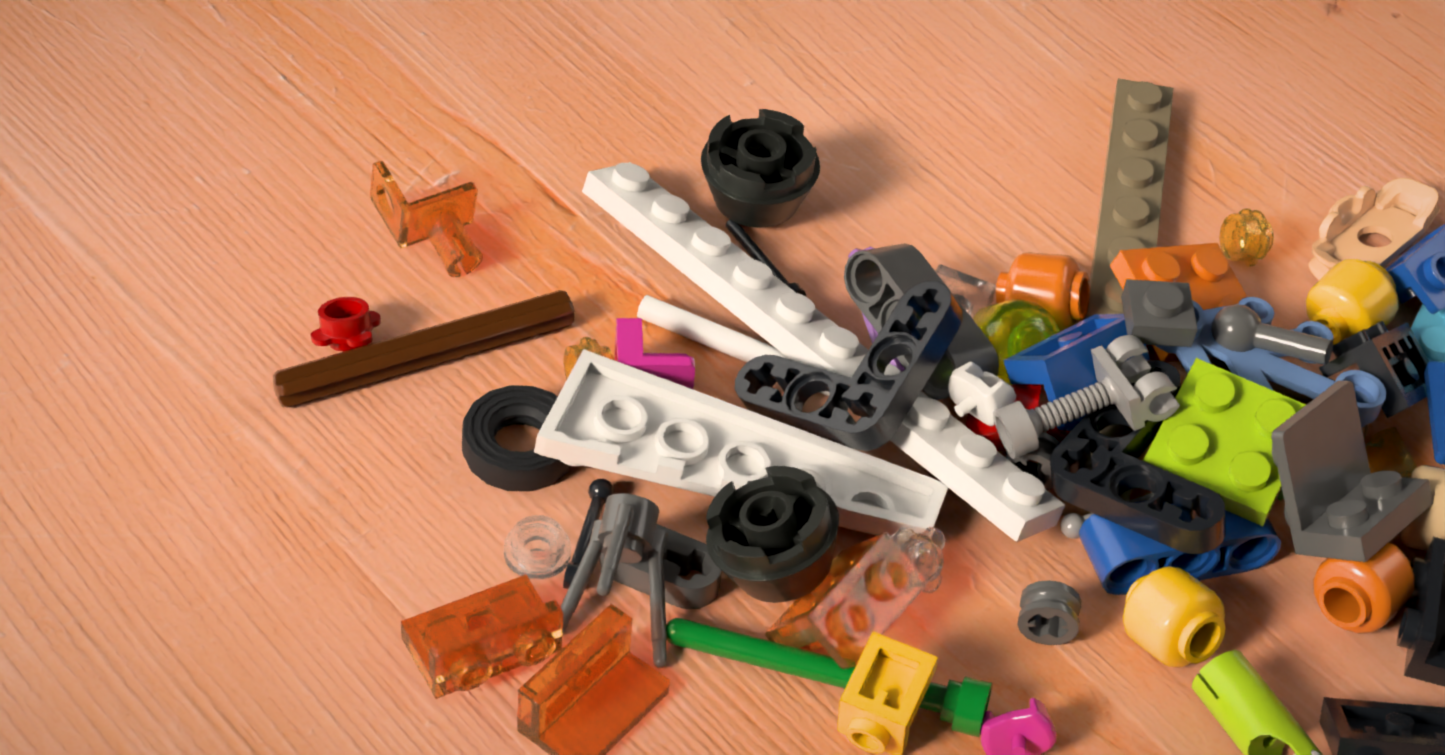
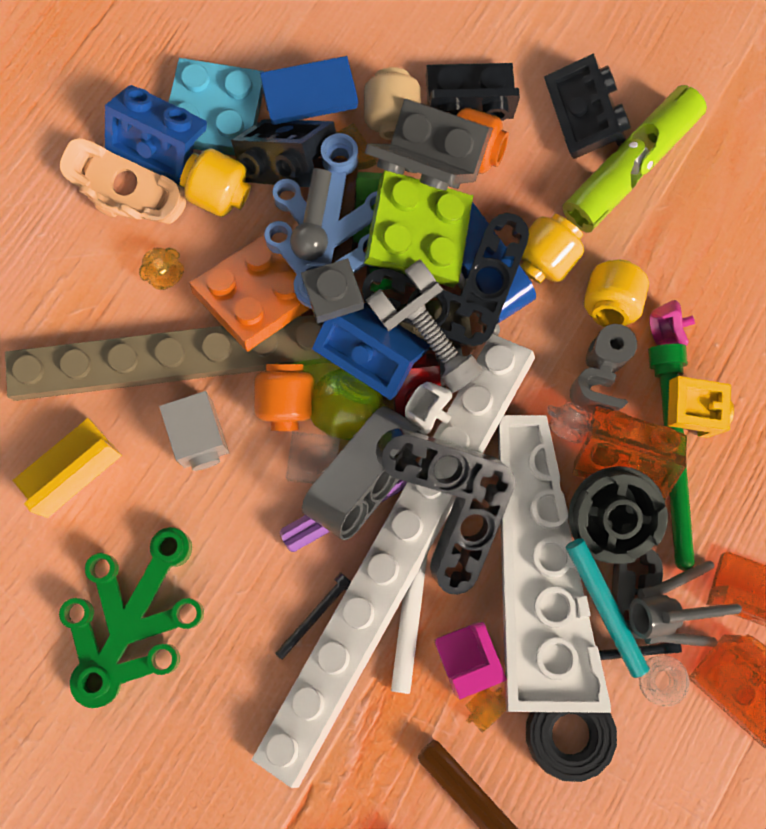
camera: 110 degrees left, 30 degrees up
(665, 489) = (607, 607): none -> teal bar
(759, 168) = (241, 645): pearl dark grey cone -> none
(773, 77) = (126, 623): none -> green plant
(1000, 634) = (605, 355): none -> dark grey leg
(1014, 105) = (66, 468): none -> yellow panel
(1024, 208) = (194, 431): none -> light grey brick
(1049, 612) = (576, 326): dark grey bush -> none
(1086, 670) = (616, 293): none -> yellow head

